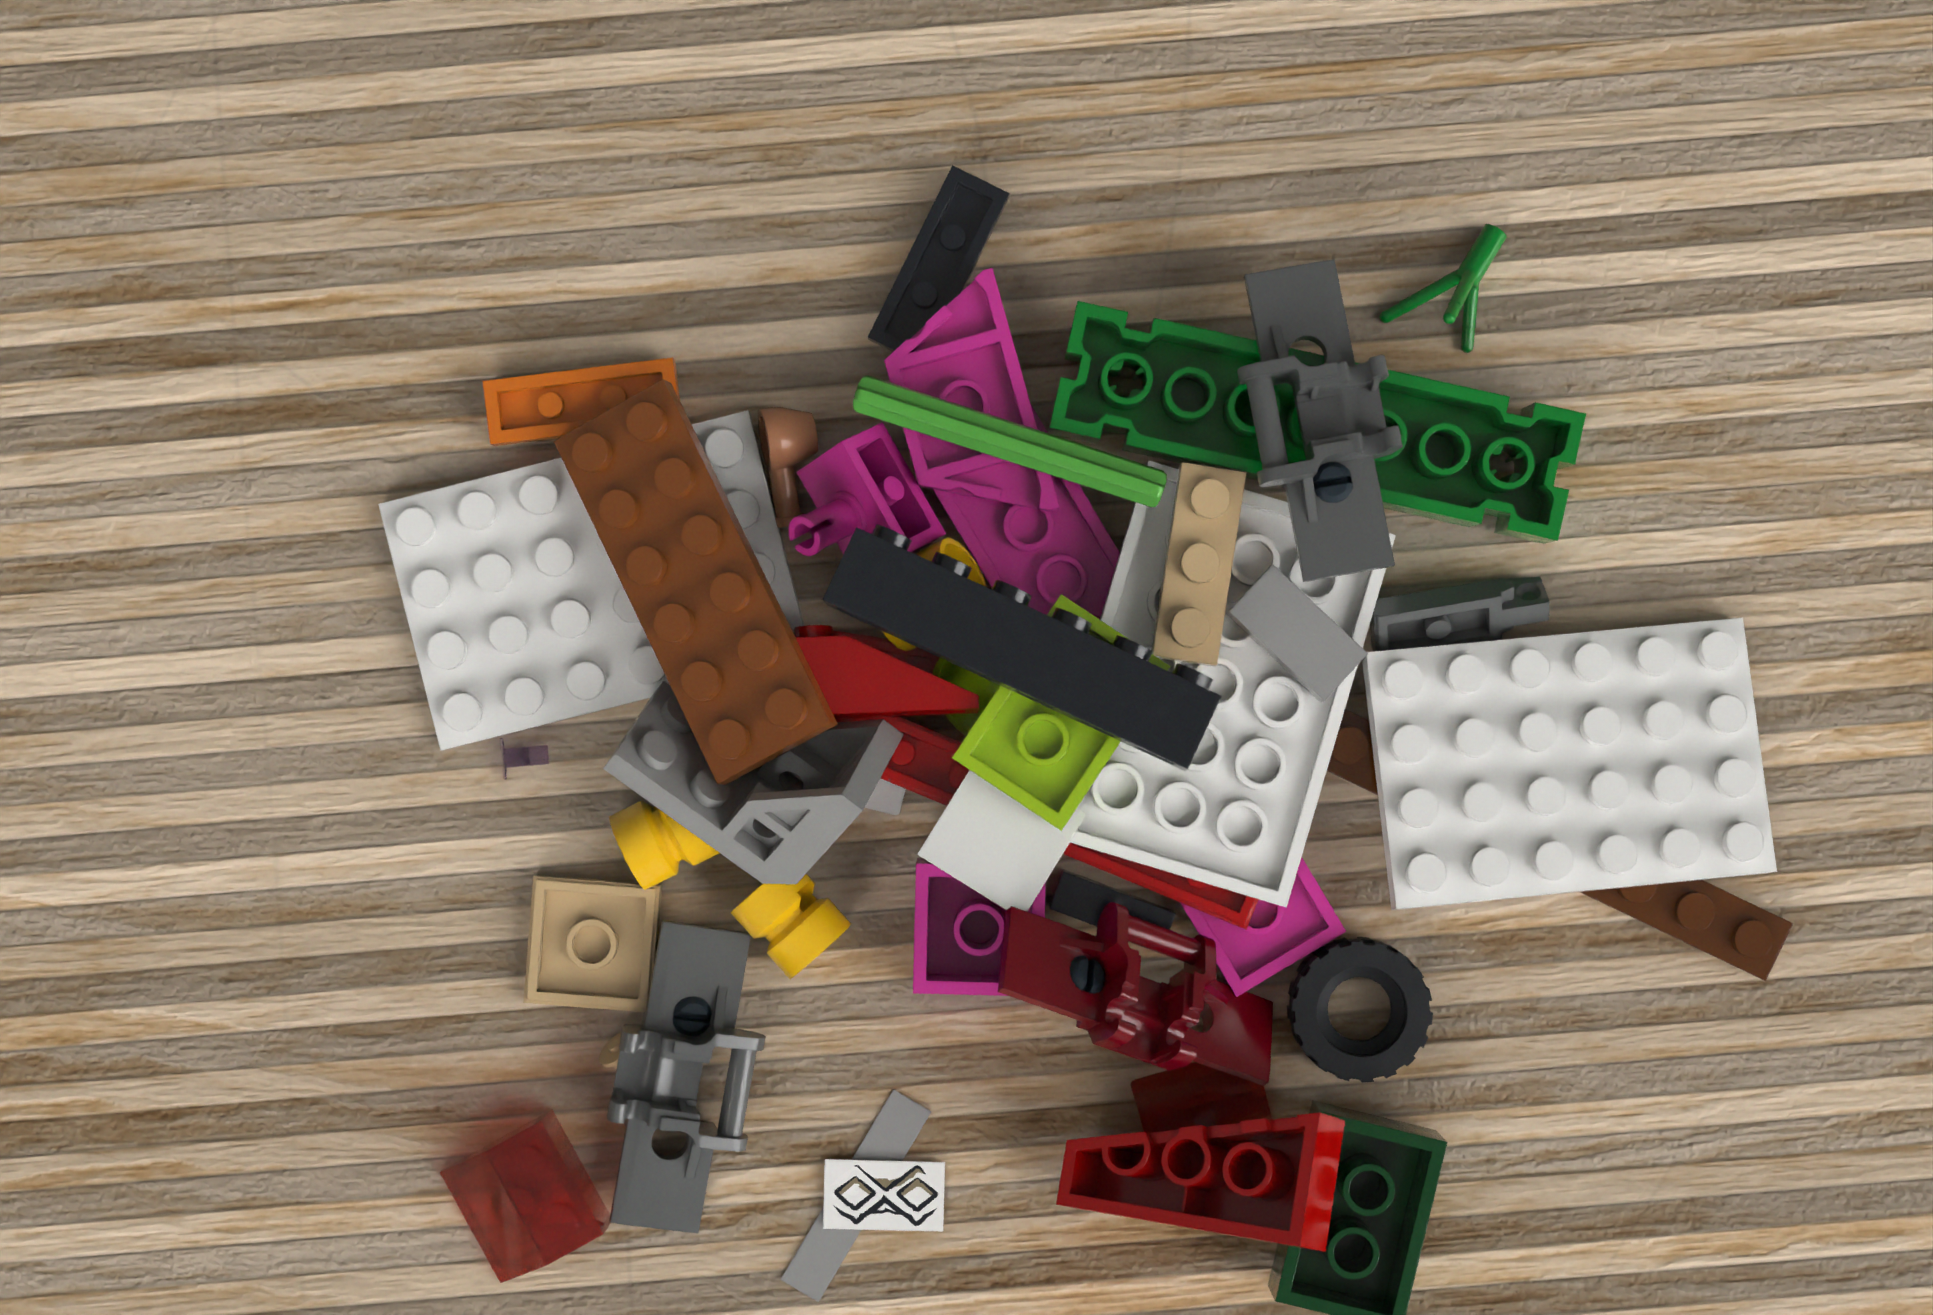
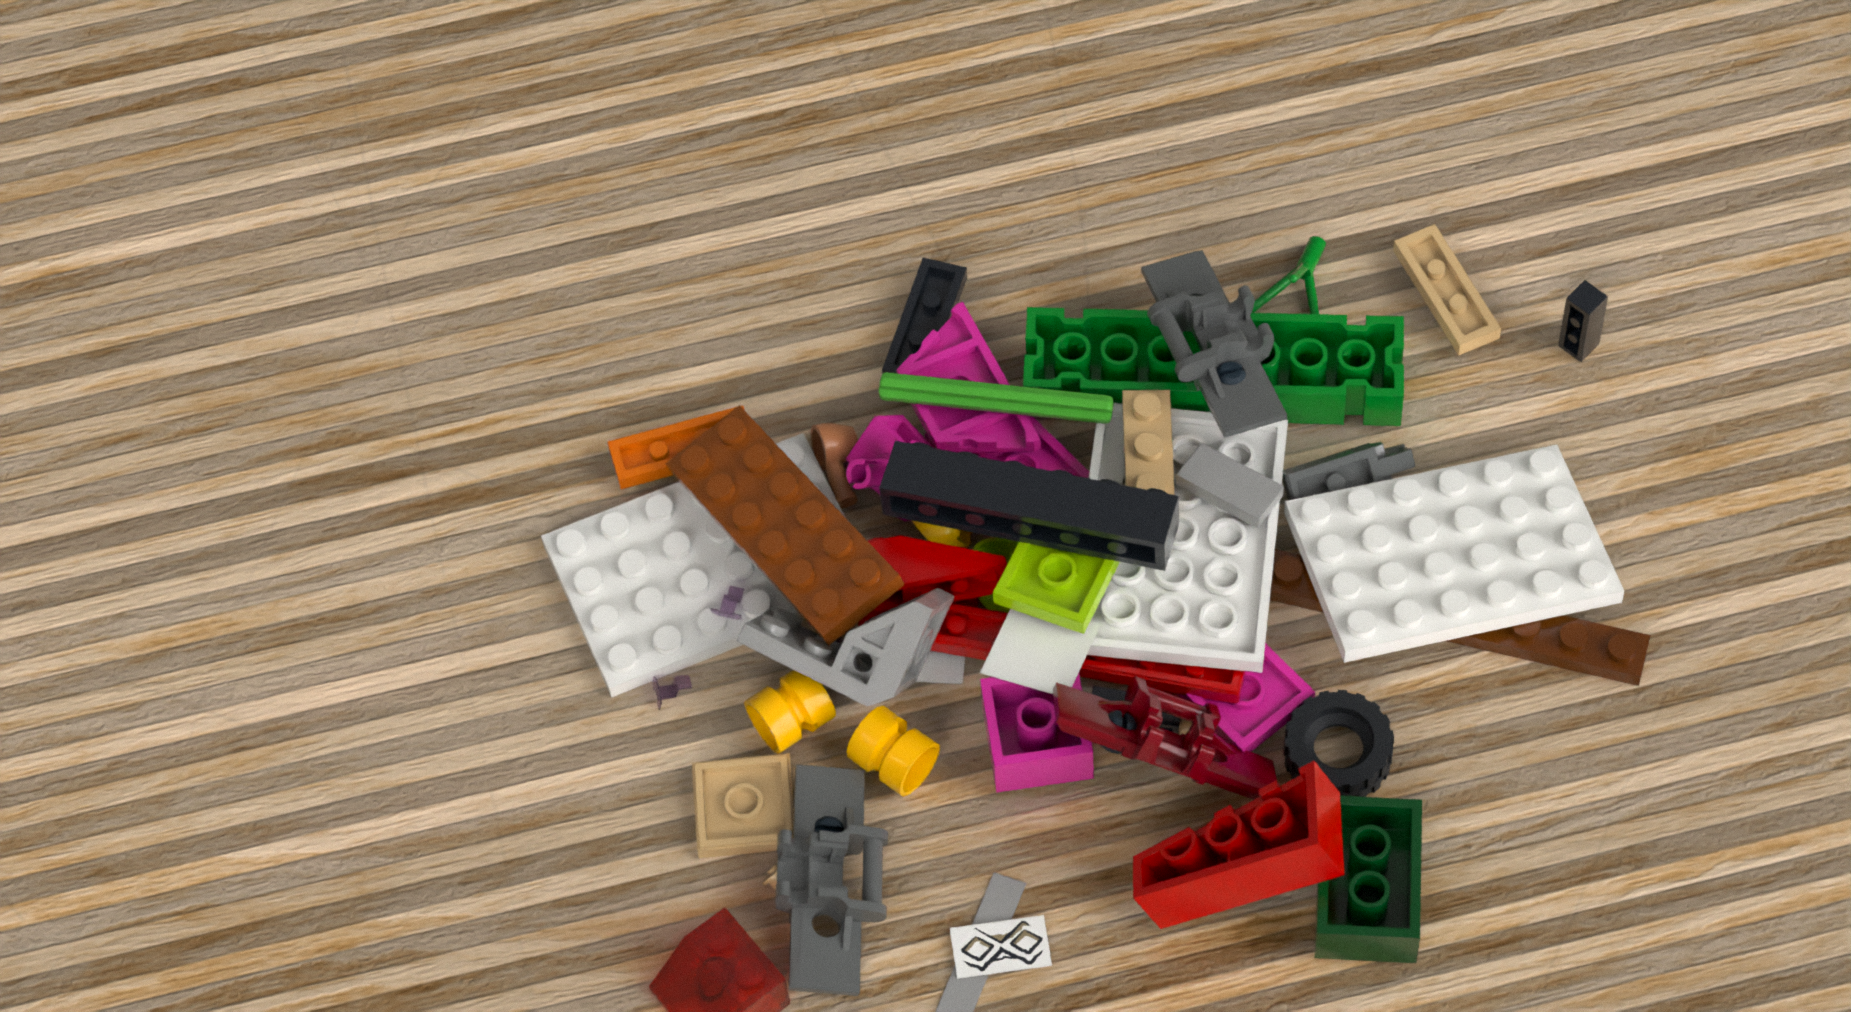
camera: 10 degrees left, 30 degrees down
(612, 665) = (729, 603): none -> clear purple piece
(1653, 346) = (1447, 289): none -> tan plate
(1825, 451) = (1582, 321): none -> black piece

